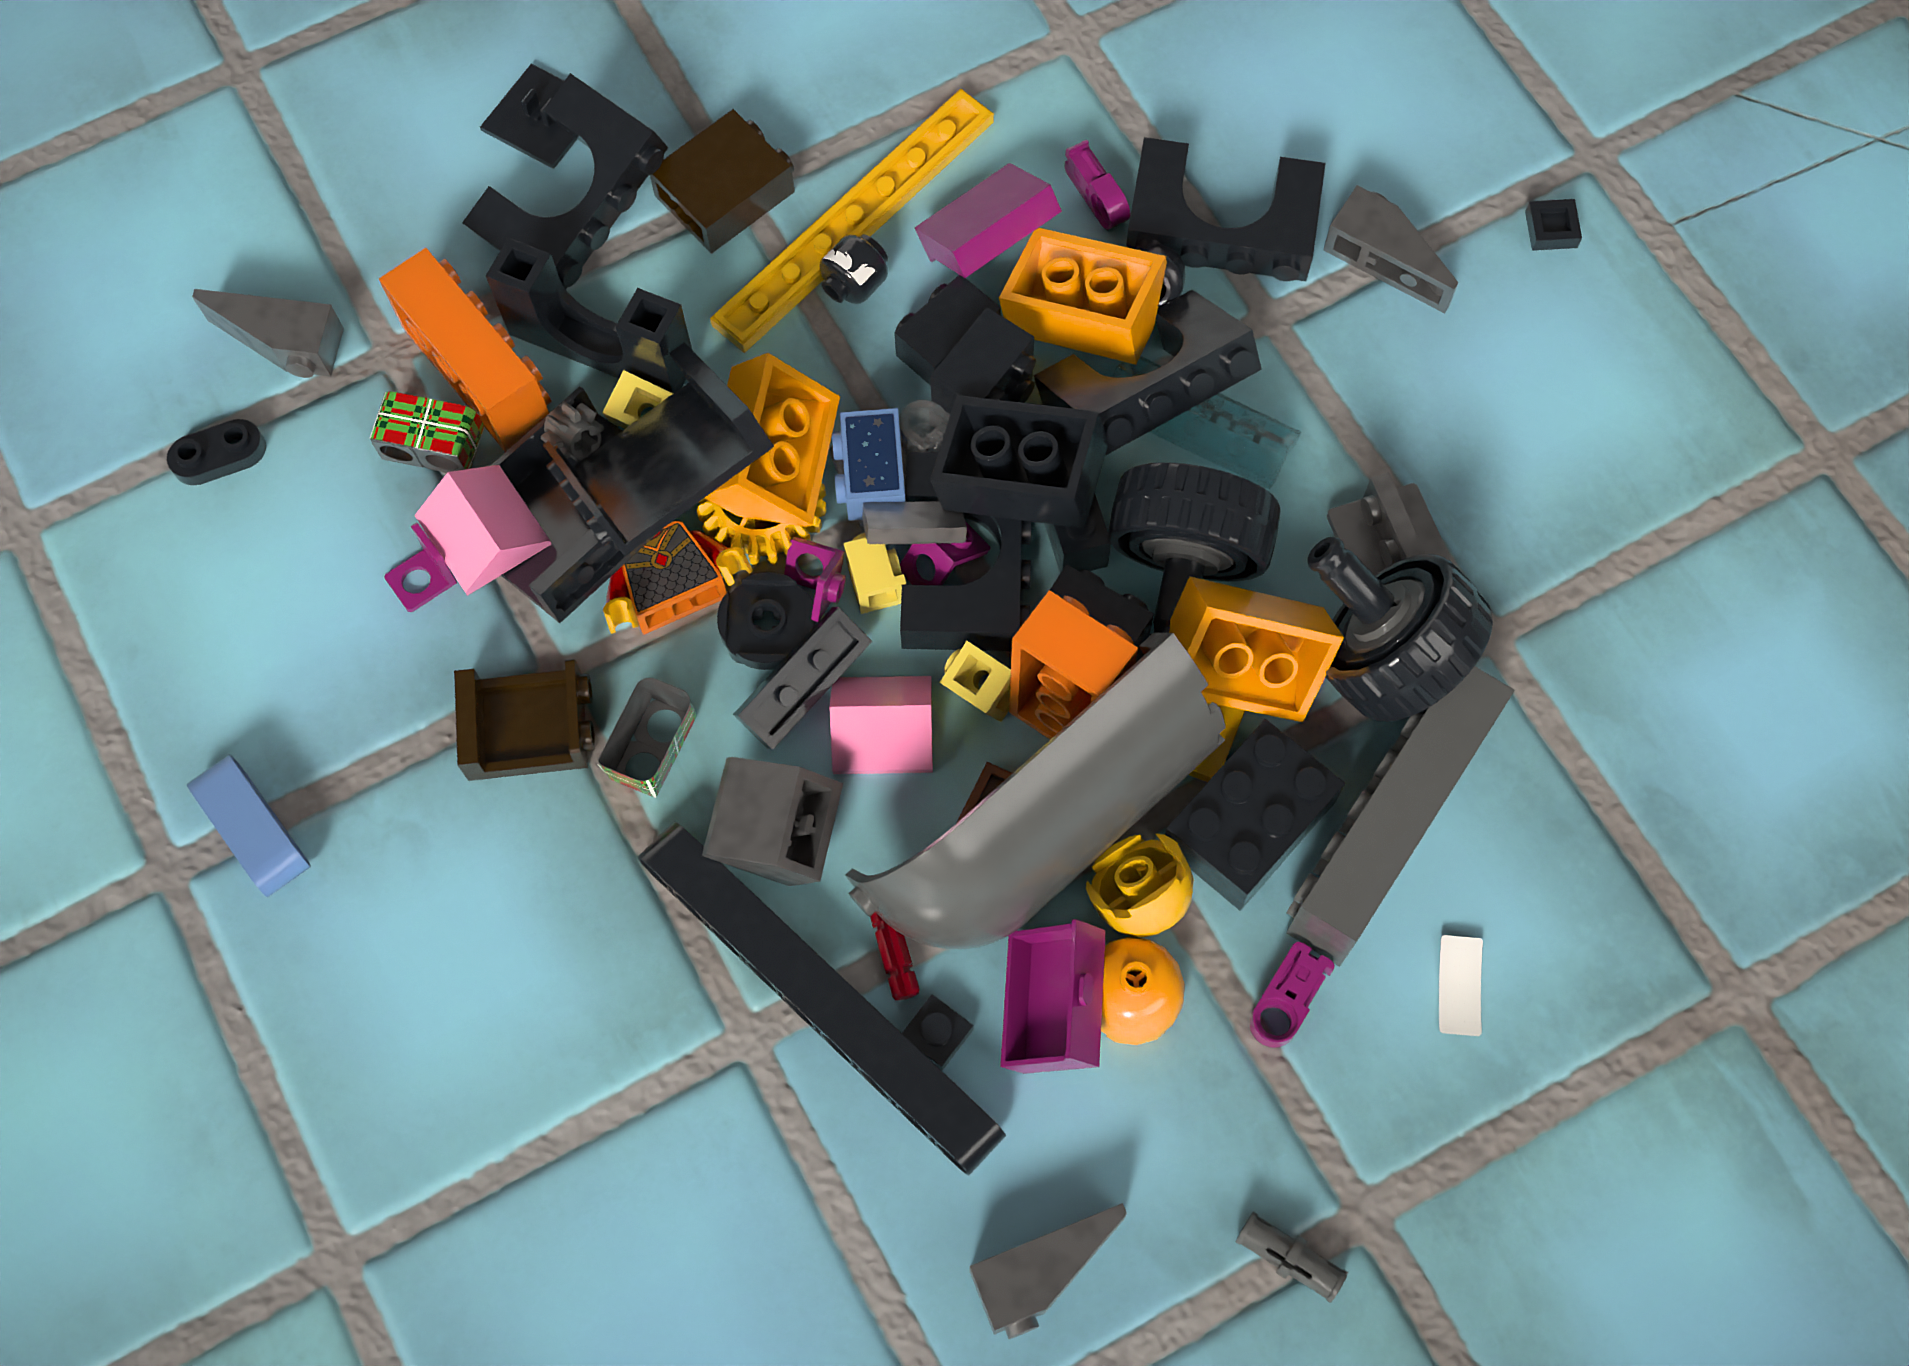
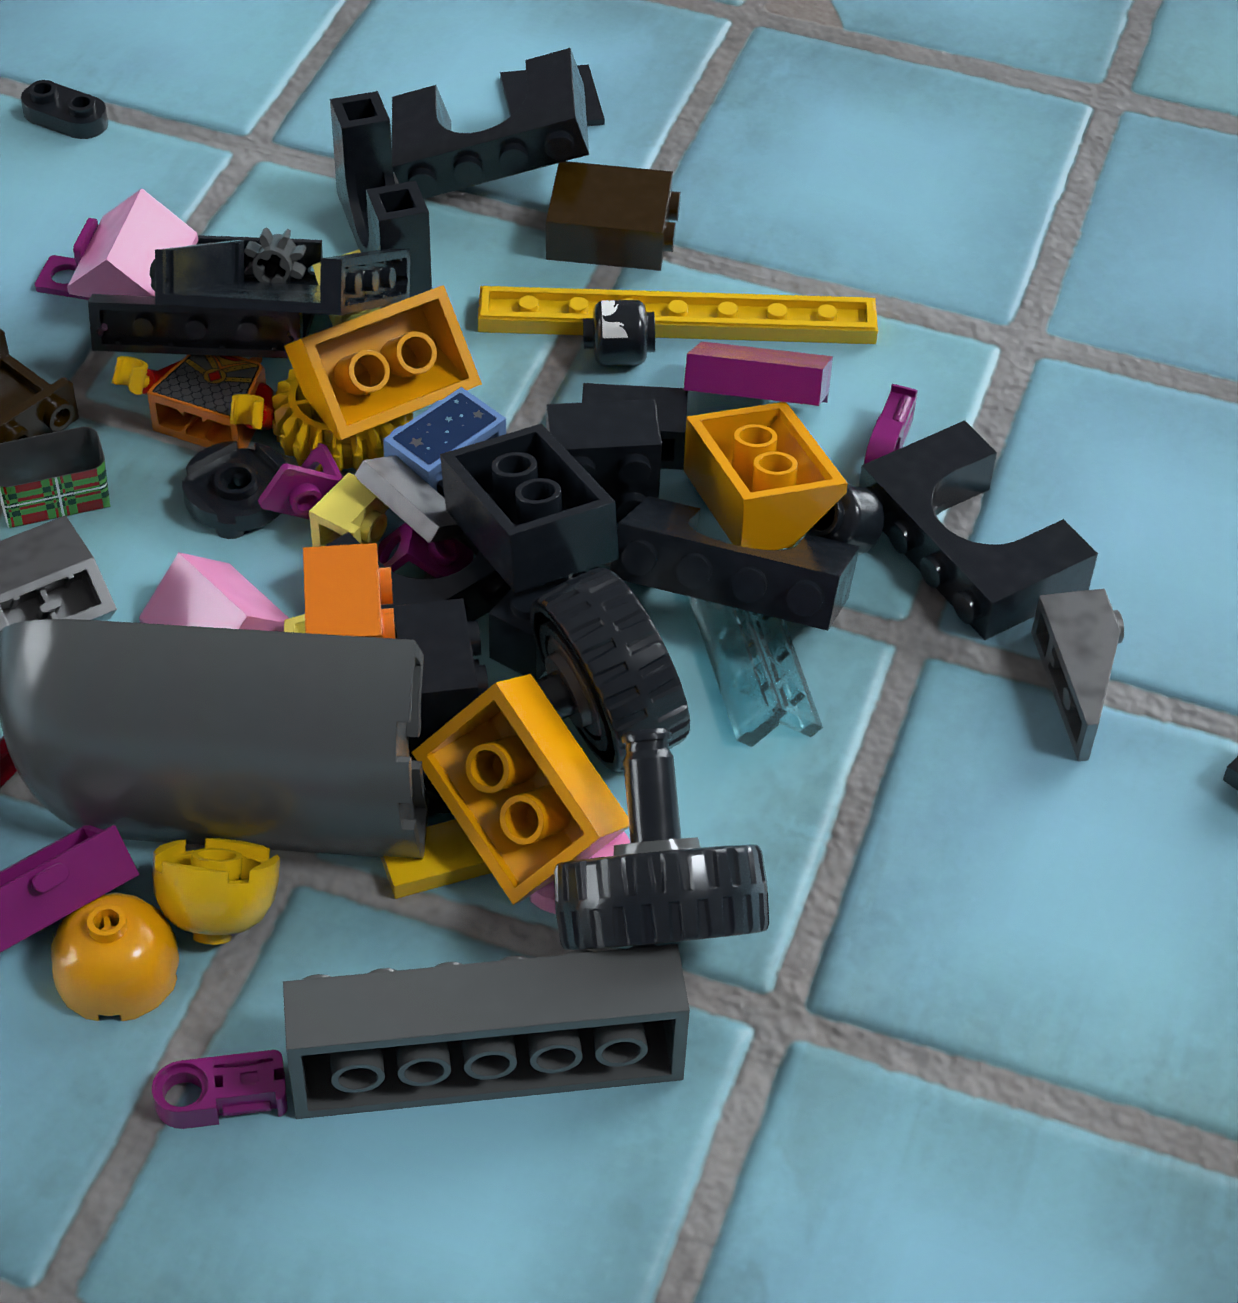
camera: 45 degrees right, 20 degrees down
(288, 333) = (203, 80): flat silver slope -> none
(426, 432) = (194, 190): piece -> none
(466, 347) = (282, 155): orange brick -> none
(802, 678) = (213, 532): black plate -> none
(1254, 813) = (374, 914): black brick -> none
(1387, 525) = (801, 852): flat silver bracket -> none
(1460, 985) = (368, 1235): white sticker -> none

